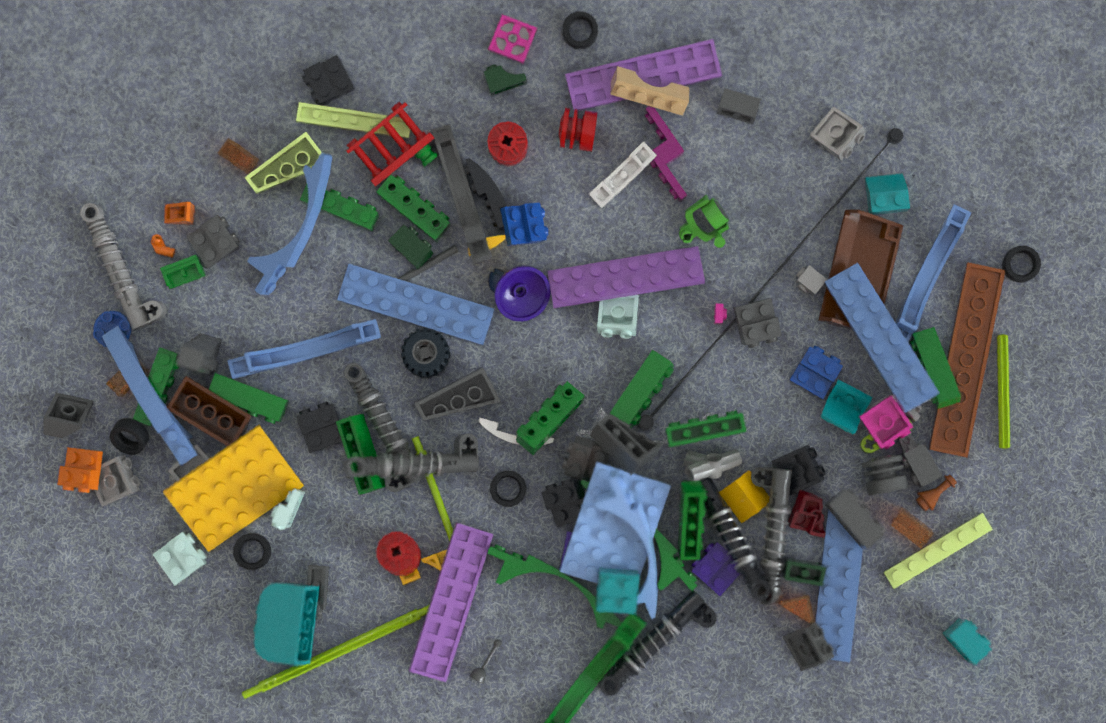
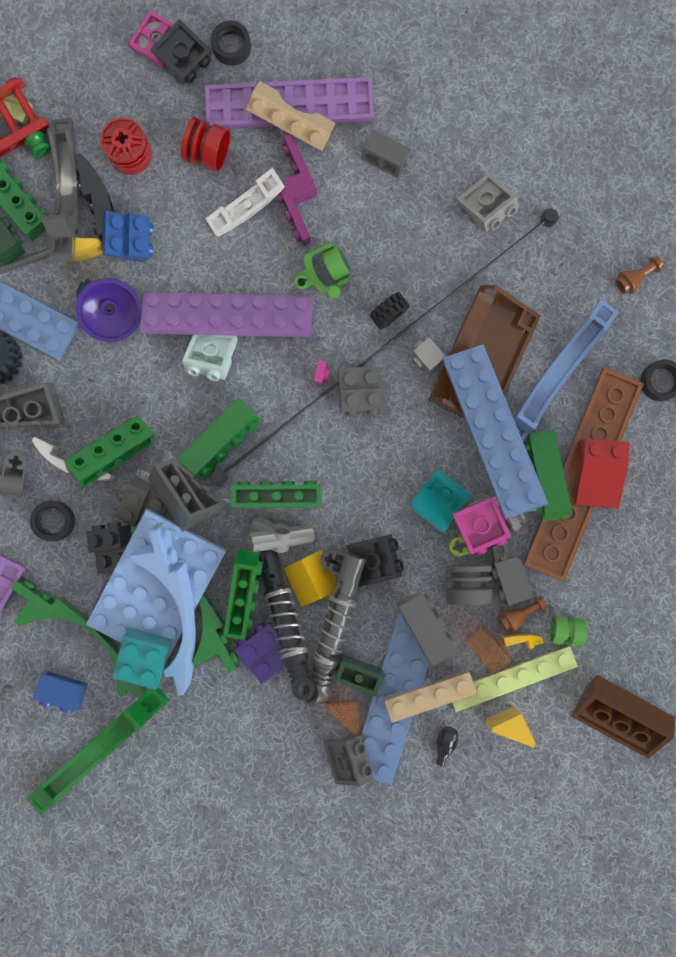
camera: 10 degrees right, 0 degrees up
(501, 81) = (135, 81): dark green arch -> none
(540, 49) = (182, 52): none -> black plate
(546, 635) = (60, 692): none -> blue brick
(657, 638) = (199, 706): black piece -> none
(769, 247) = (389, 310): none -> black tyre
(808, 514) = (376, 611): dark red slope -> none
(816, 372) = (415, 456): blue plate -> none
(868, 577) = (421, 699): none -> tan arch
(887, 194) = (529, 278): teal slope -> none
(891, 616) = (446, 744): none -> black piece
(945, 589) = (512, 725): none -> yellow slope
(947, 515) = (528, 639): none -> yellow slope
(967, 641) = (528, 790): teal brick -> none
(977, 179) = (629, 280): none -> dark orange piece
(978, 499) = (571, 631): none -> bright green wheel
(981, 356) = (601, 472): none -> red slope
(1003, 391) = (615, 530): lime axle -> none
(1040, 565) = (624, 717): none -> reddish brown slope

